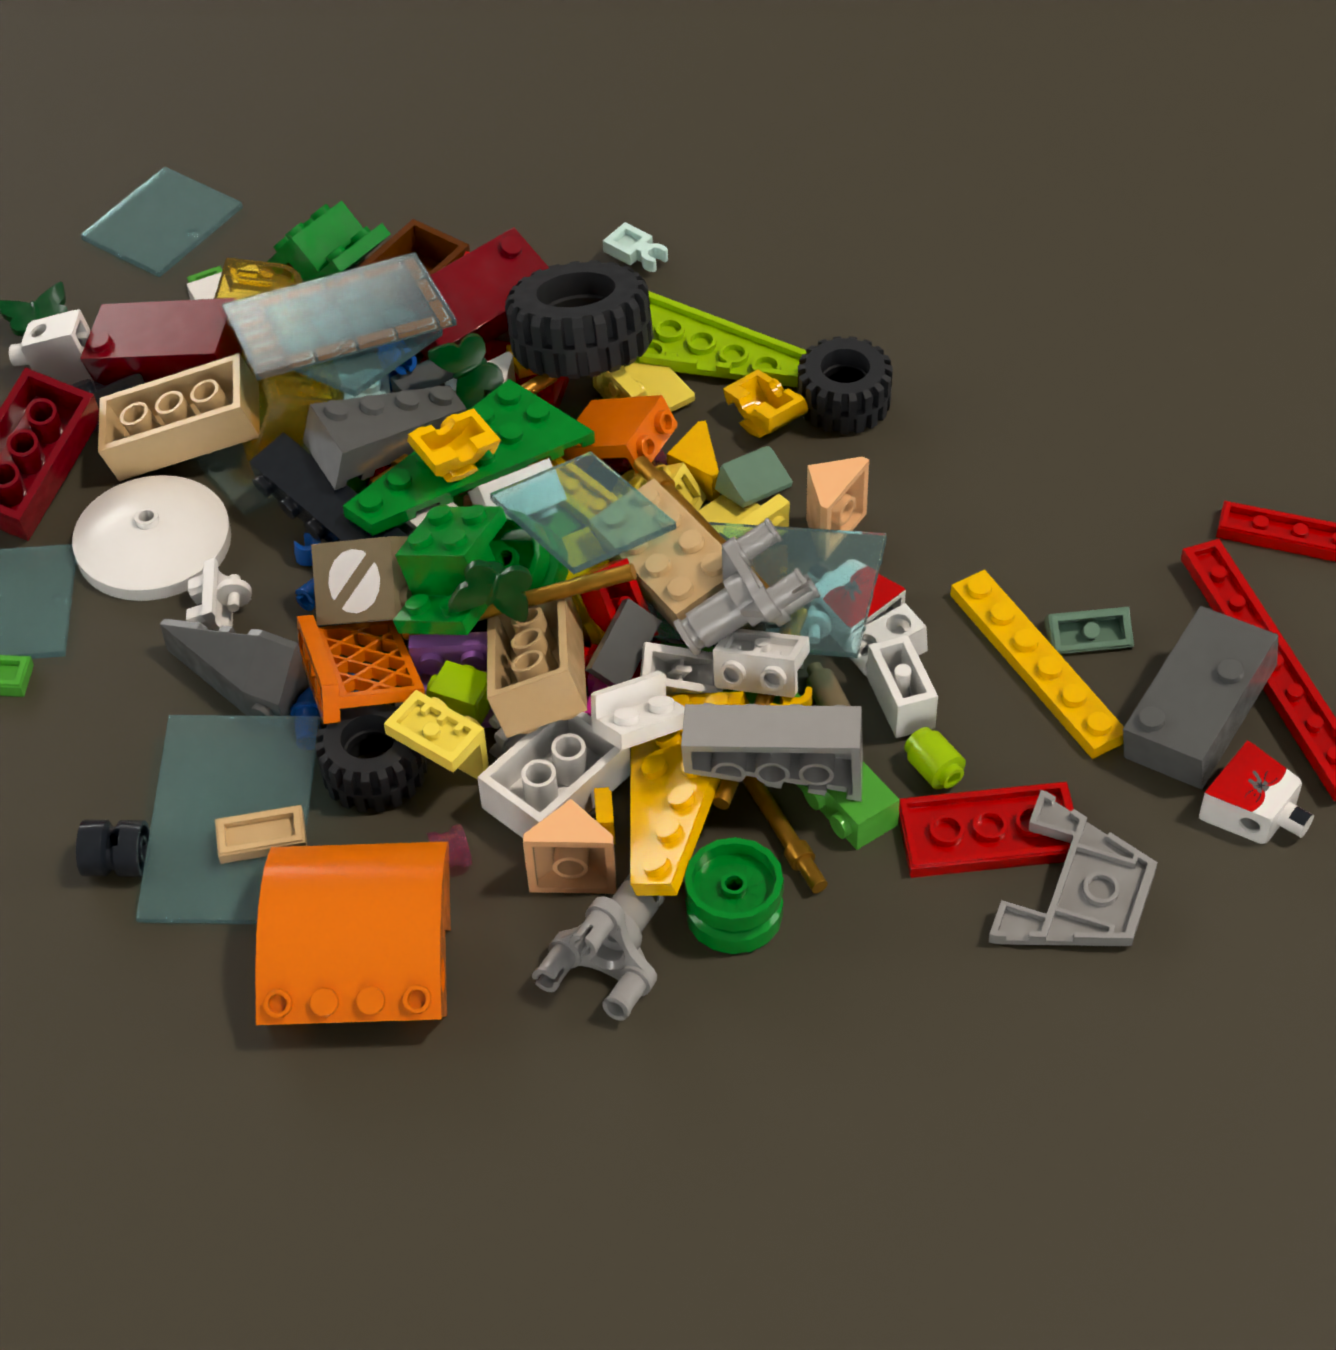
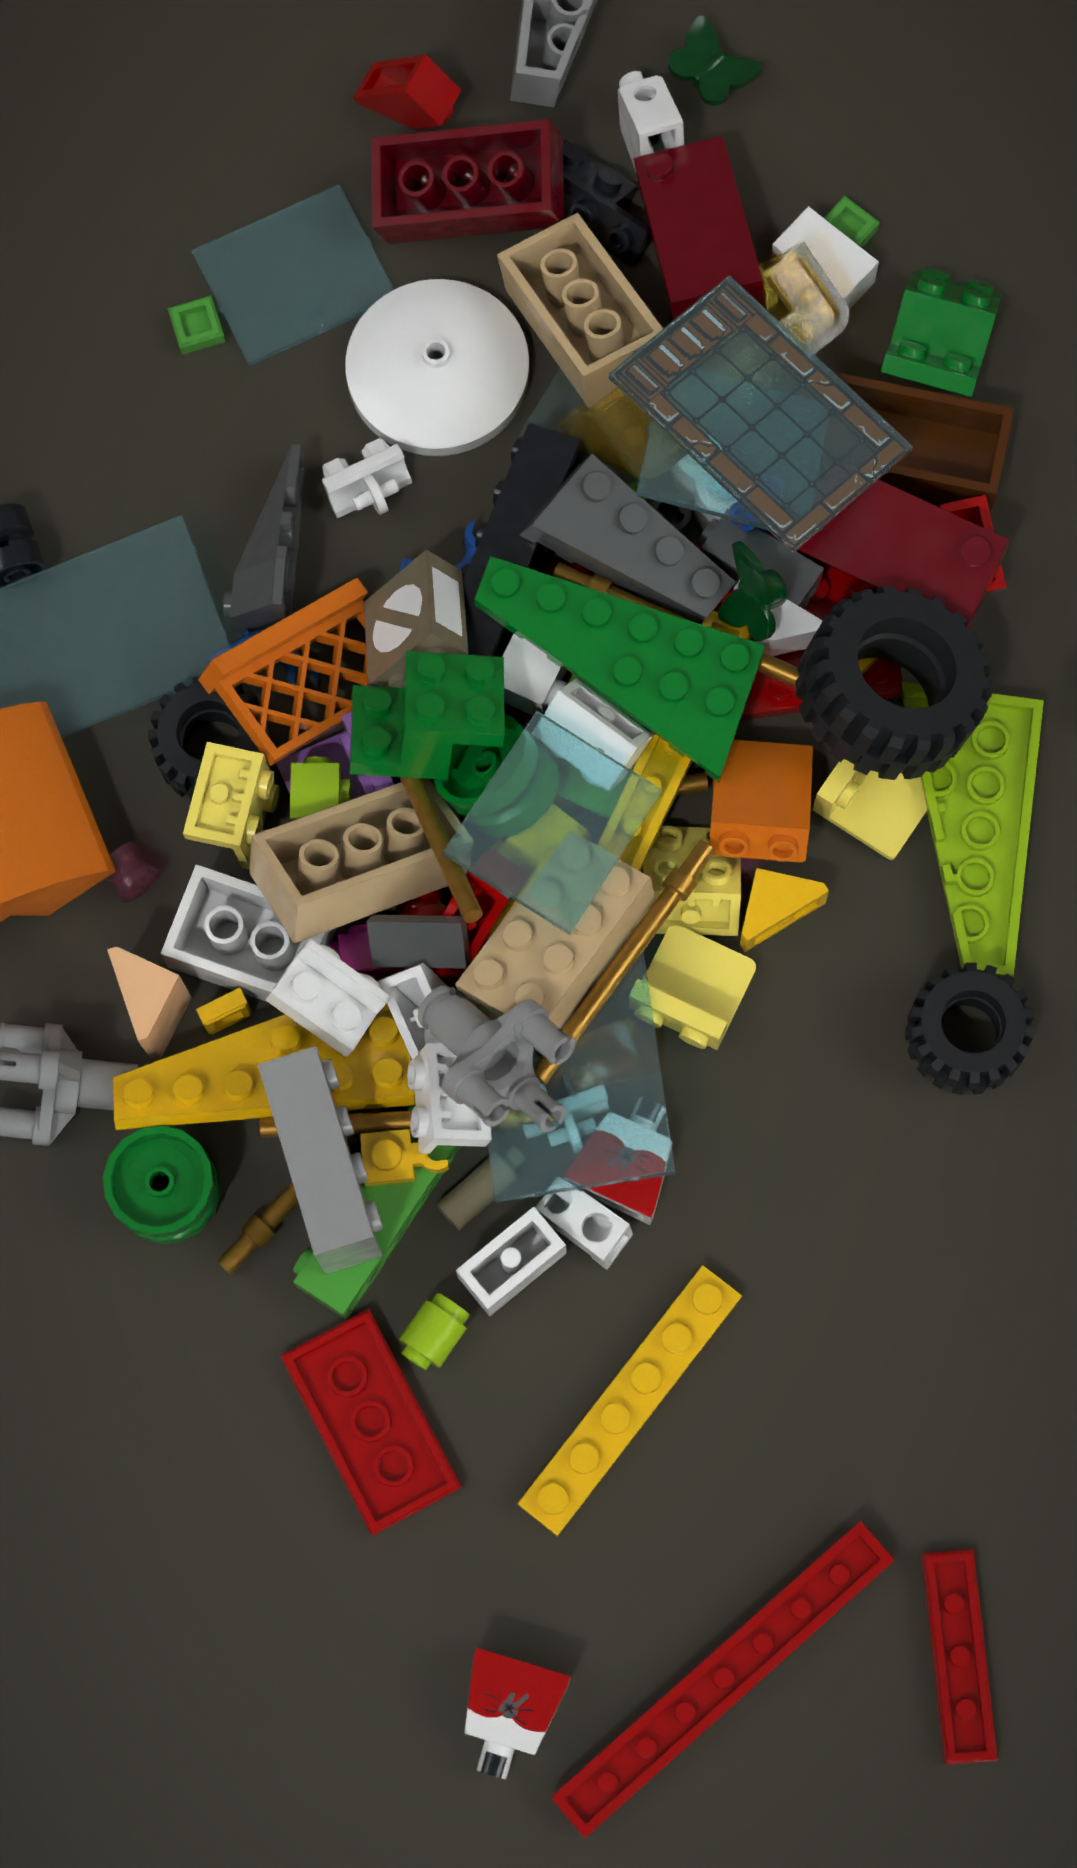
camera: 70 degrees right, 25 degrees up
(161, 221) = (937, 117): clear light blue piece -> none
(255, 833) = (74, 679): tan tile -> none
(455, 446) = (599, 635): yellow cylinder -> none
(493, 585) = (397, 771): dark green animal -> none
(752, 477) = (771, 981): sand green slope -> none
(764, 403) = (902, 944): yellow cylinder -> none
(837, 494) = (751, 1089): light nougat slope -> none
(1090, 630) = (702, 1445): sand green slope -> none
(1097, 891) = (319, 1565): light grey wing -> none
(1200, 697) = (619, 1605): dark grey brick -> none

